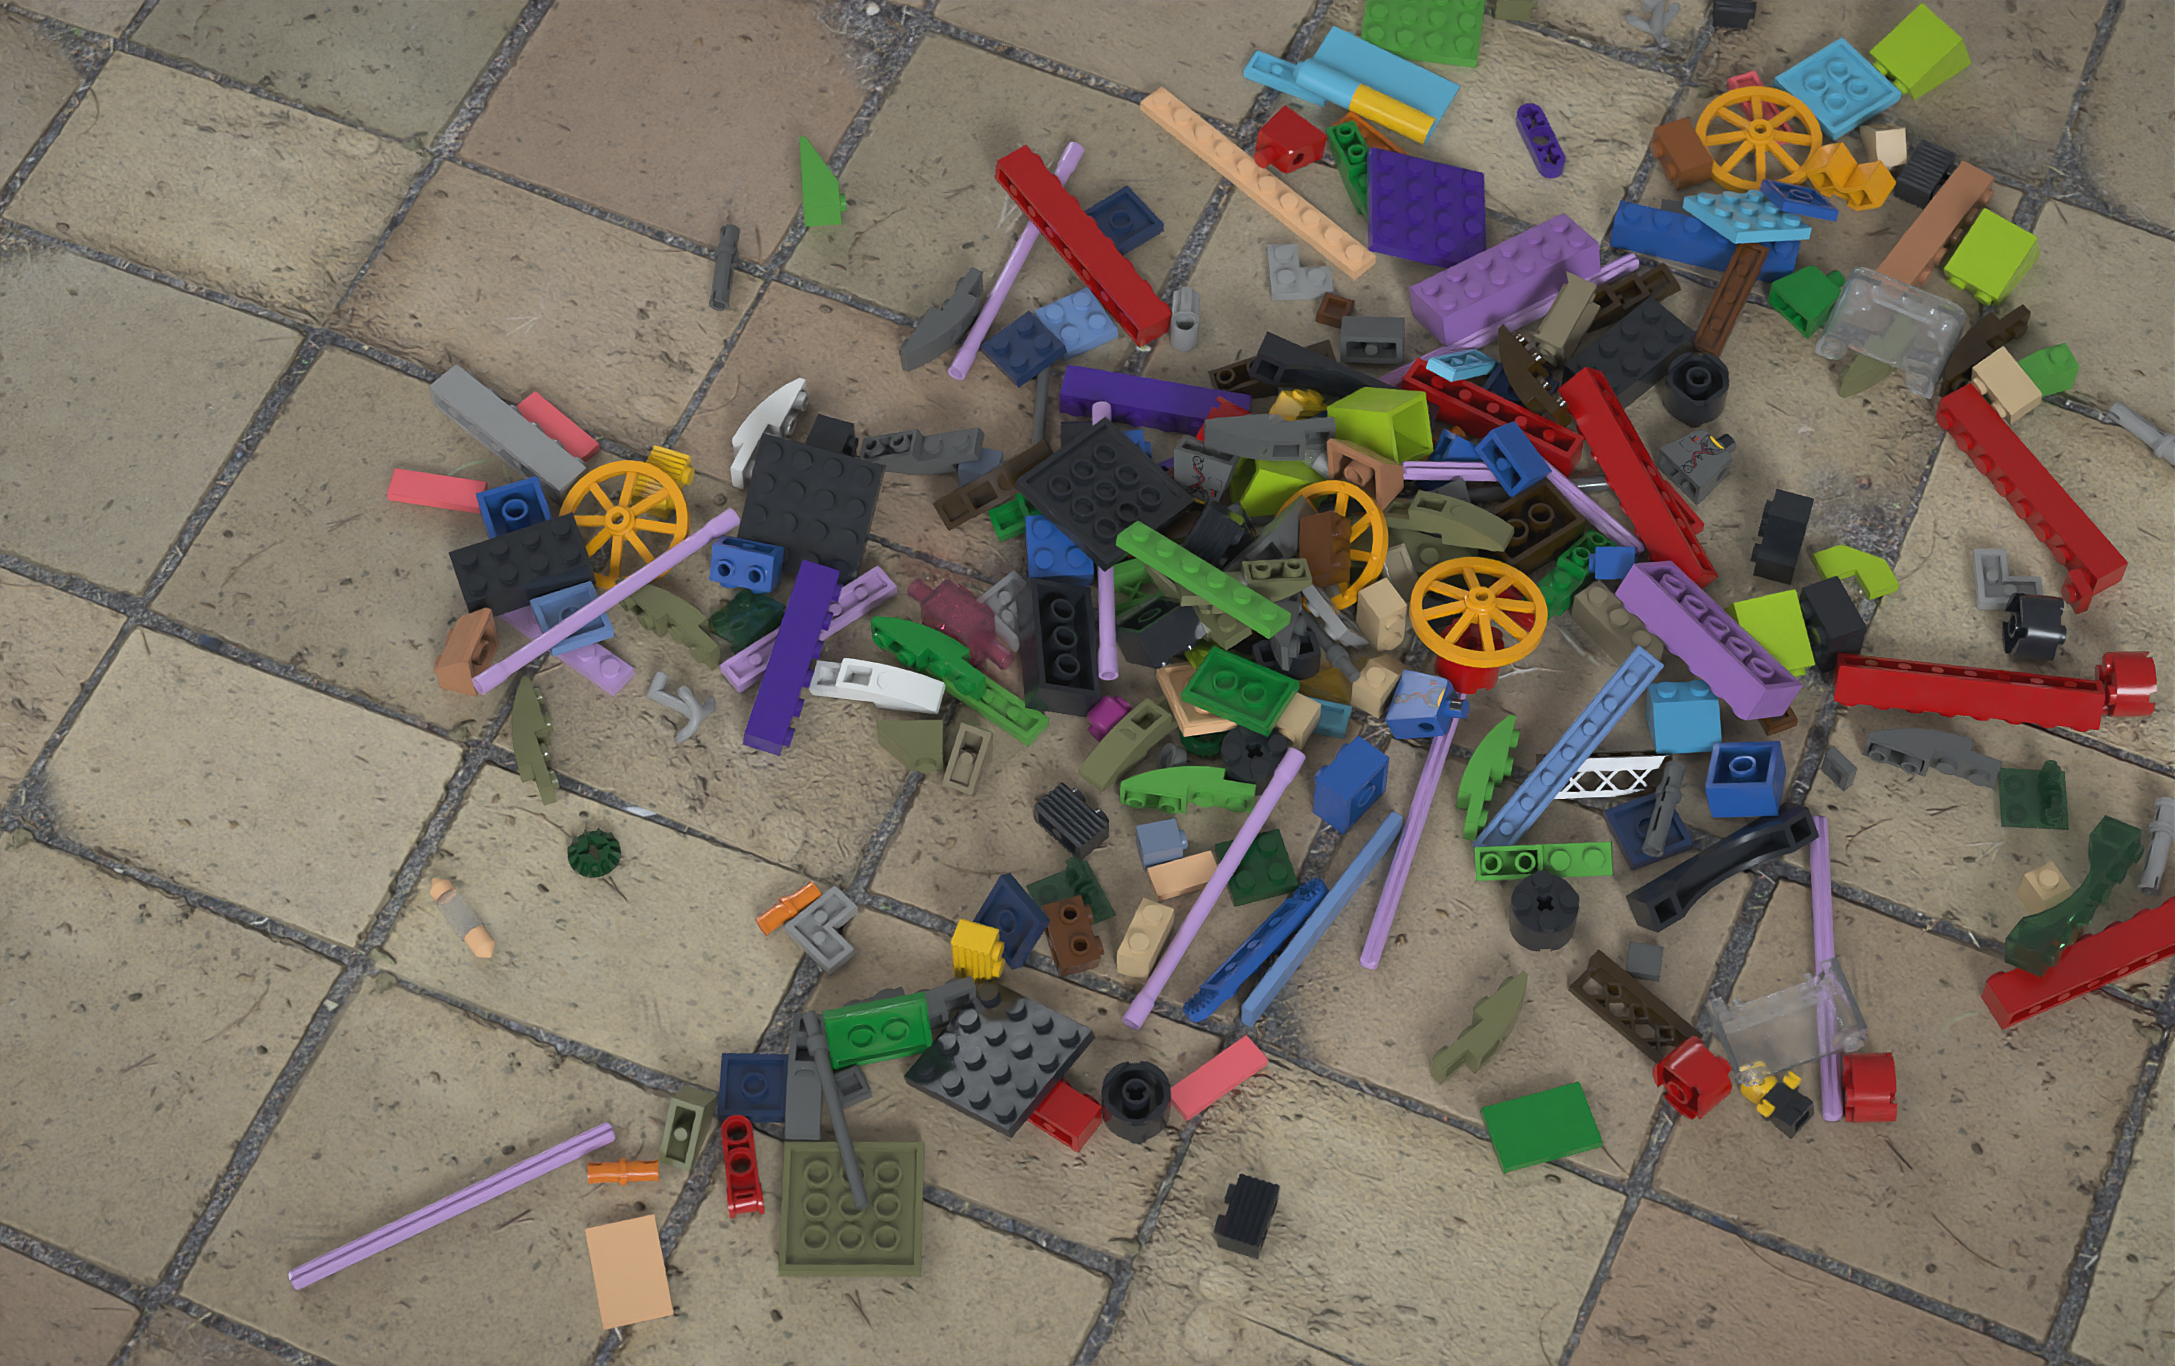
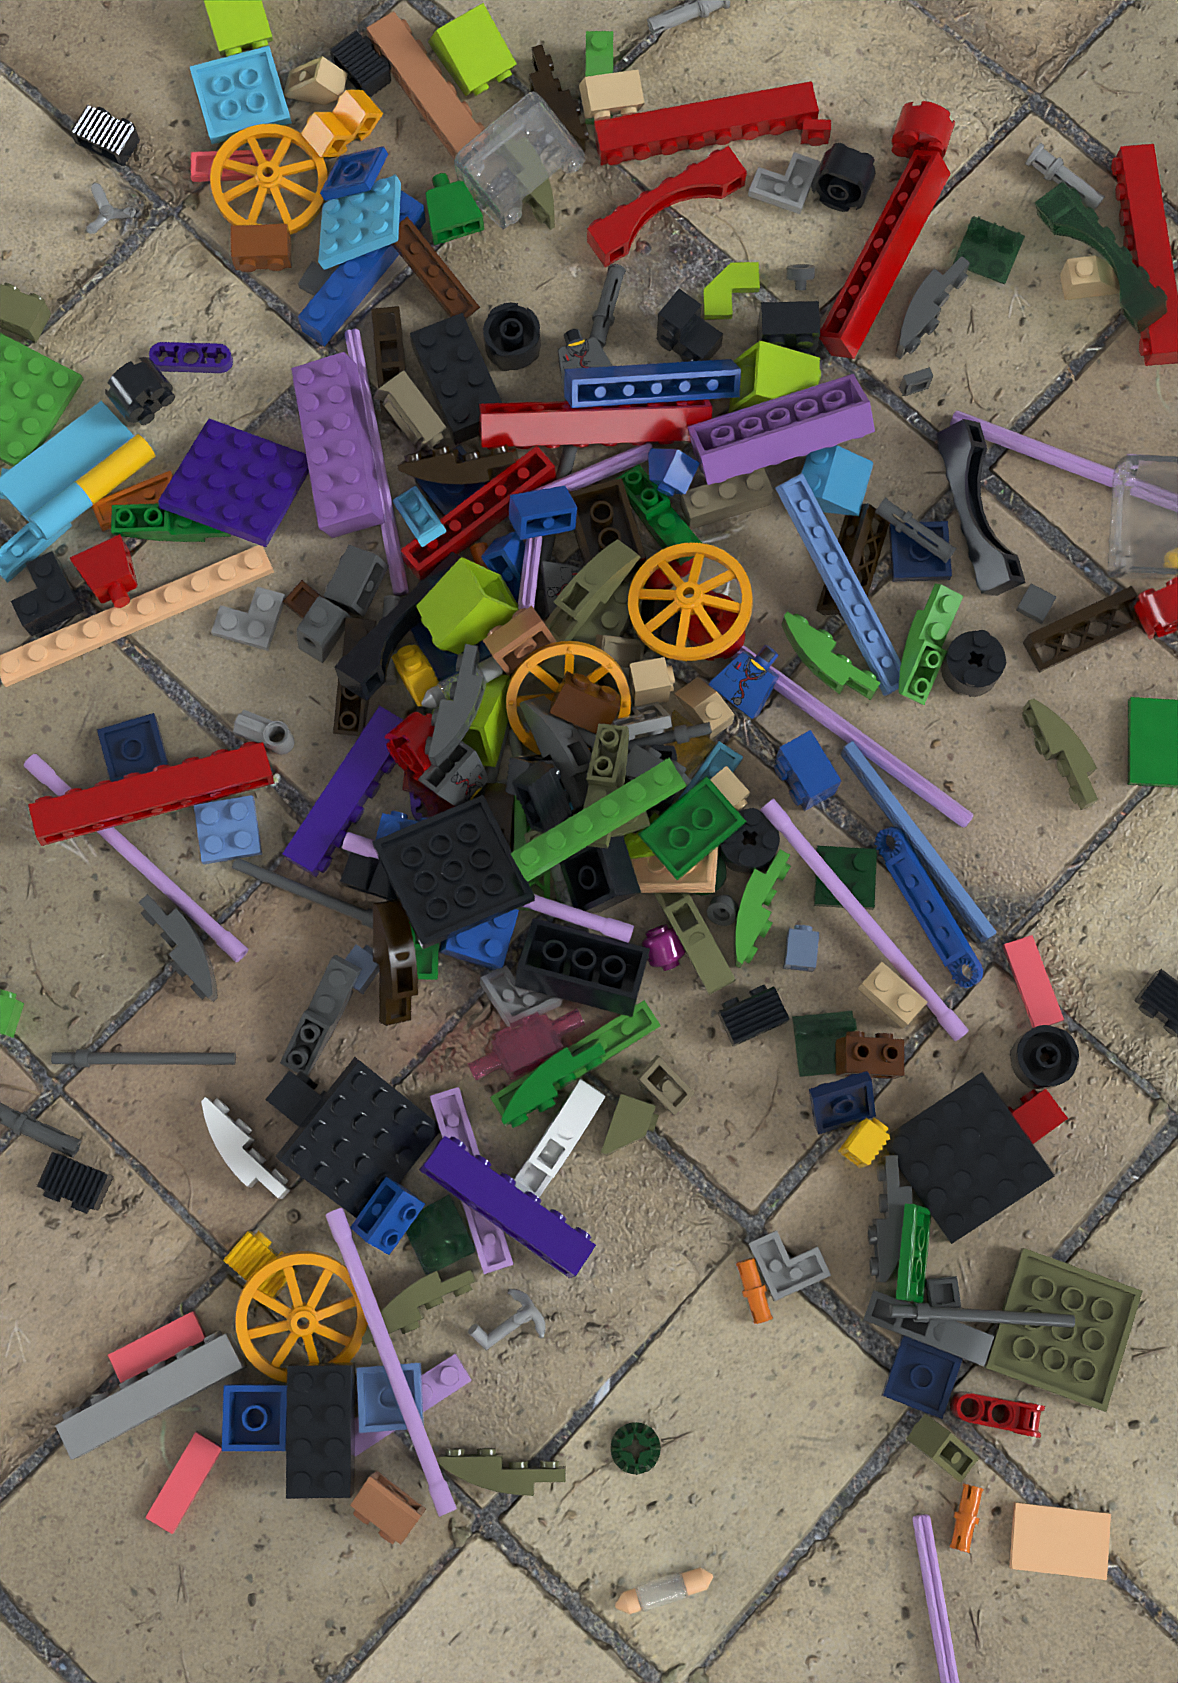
camera: 70 degrees left, 20 degrees up
(686, 312) = (74, 1182): none -> black brick
(808, 285) = (85, 1058): none -> dark grey bar
(1023, 349) = (241, 886): dark blue plate -> none
(1181, 875) = (833, 940): light nougat tile -> none
(1238, 109) = (51, 601): none -> black brick
(1312, 322) = (323, 627): none -> dark grey torso
(1479, 104) = (139, 391): none -> black brick
(1703, 516) = (651, 383): none -> blue brick
(1745, 779) = (912, 455): blue brick -> none
(1809, 463) = (603, 316): none -> dark grey pin
(1863, 448) = (711, 178): none -> red arch
(1905, 625) = (800, 274): none -> dark grey tile

